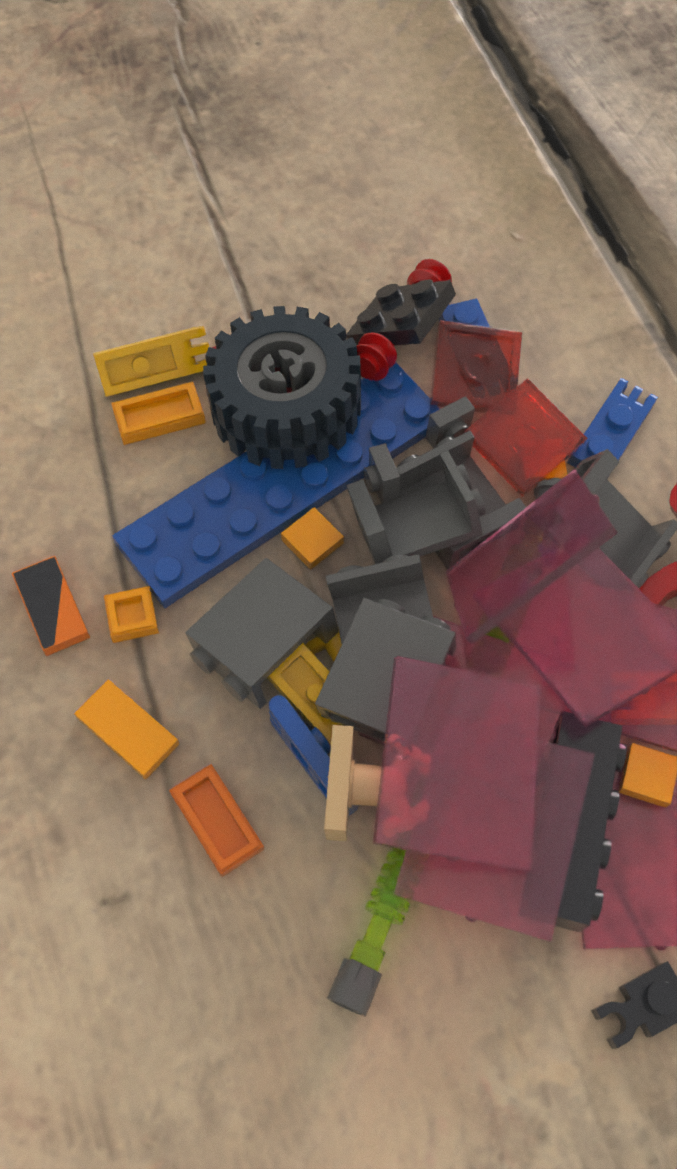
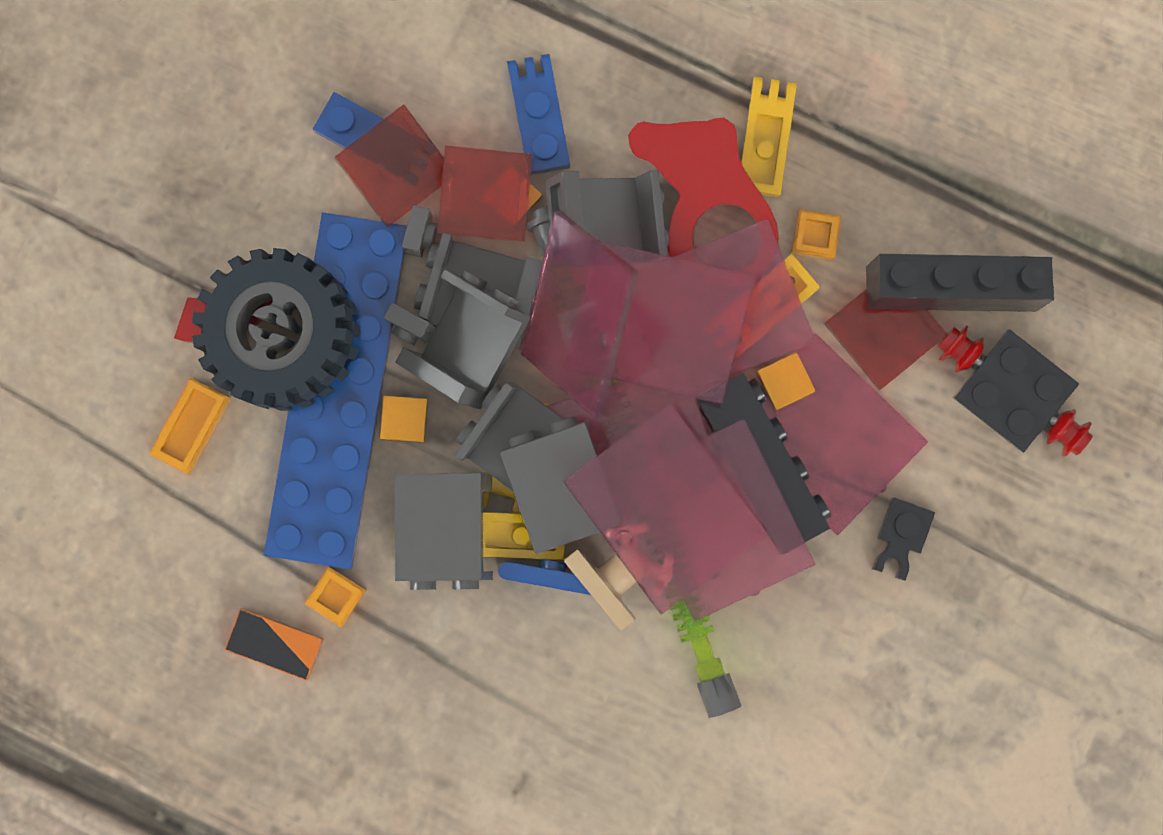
camera: 40 degrees left, 20 degrees up
(127, 729) = (416, 676): light orange tile -> none
(150, 361) = (144, 389): yellow hinge -> none
(216, 820) = (534, 676): orange tile -> none
(401, 317) = (297, 174): black plate -> none

